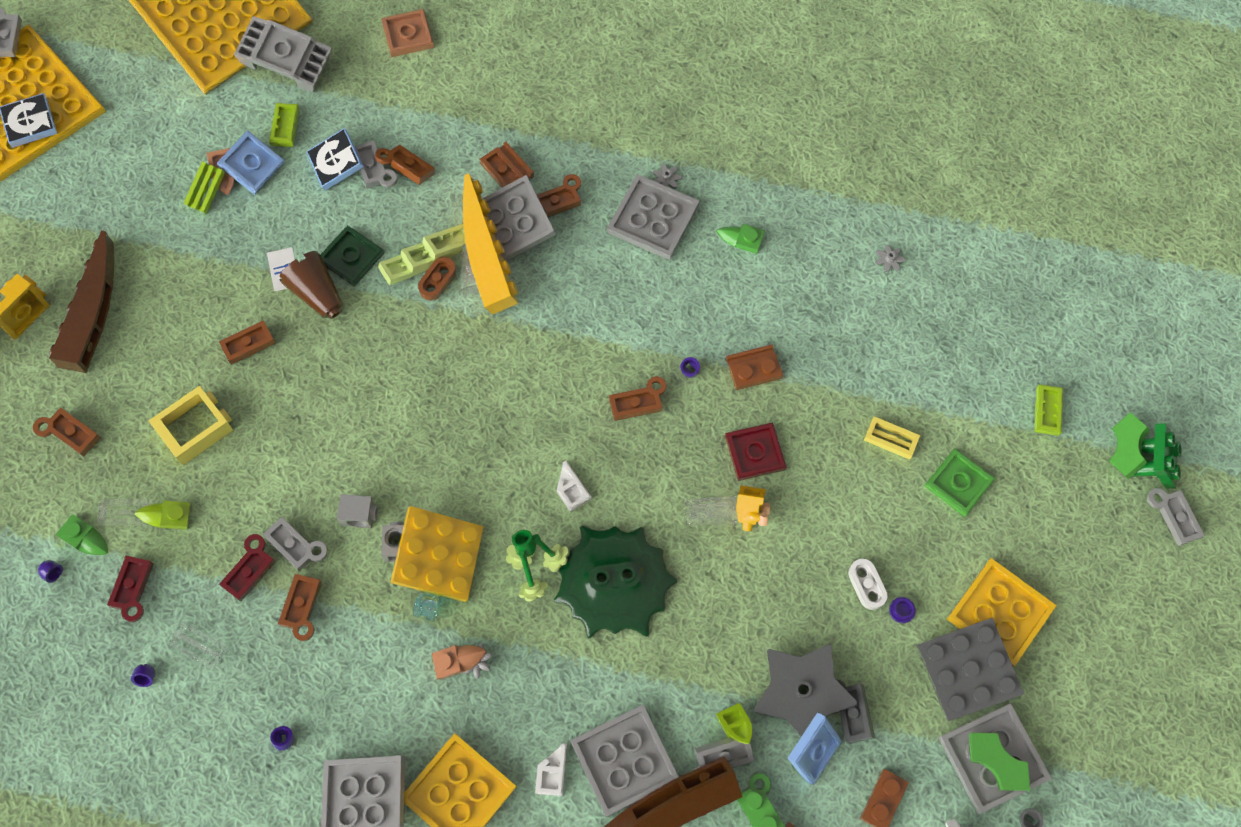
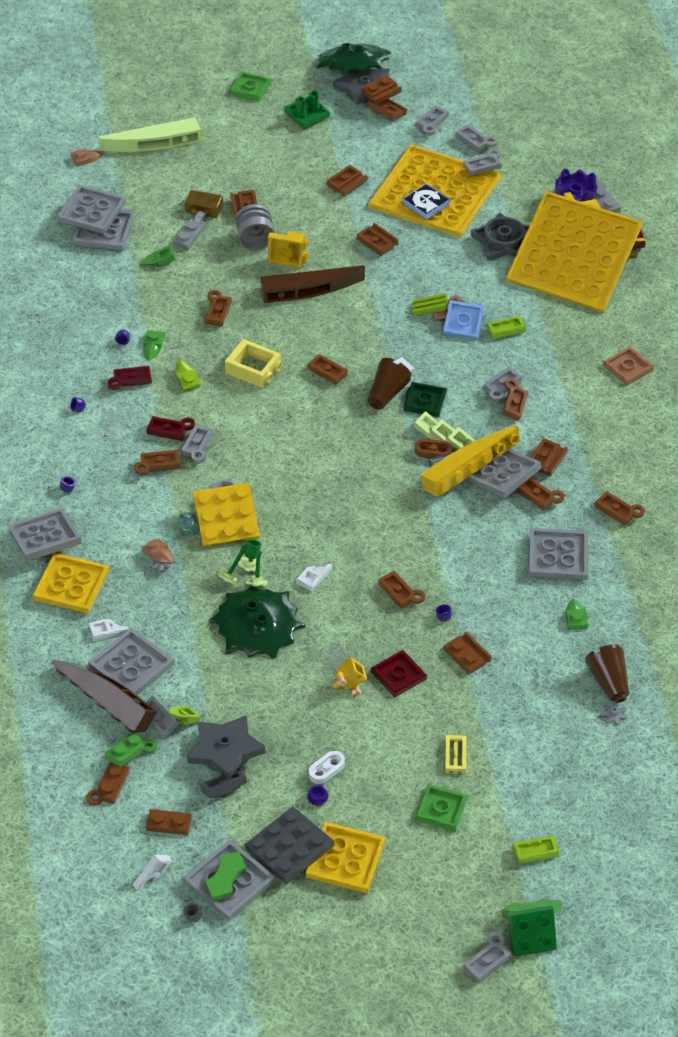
camera: 70 degrees right, 20 degrees down
(56, 199) = (377, 239): none -> dark orange plate
(137, 66) = (500, 236): none -> dark grey plate
(283, 52) = (559, 303): light grey plate -> none
(335, 159) = (494, 361): tile -> none
(356, 511) = (236, 465): light grey brick -> none
(614, 132) = (618, 509): none -> dark orange hinge
(667, 176) = (600, 553): light grey plant -> none
(815, 749) = (185, 760): light blue tile -> none
(845, 236) = (610, 671): none -> reddish brown cone

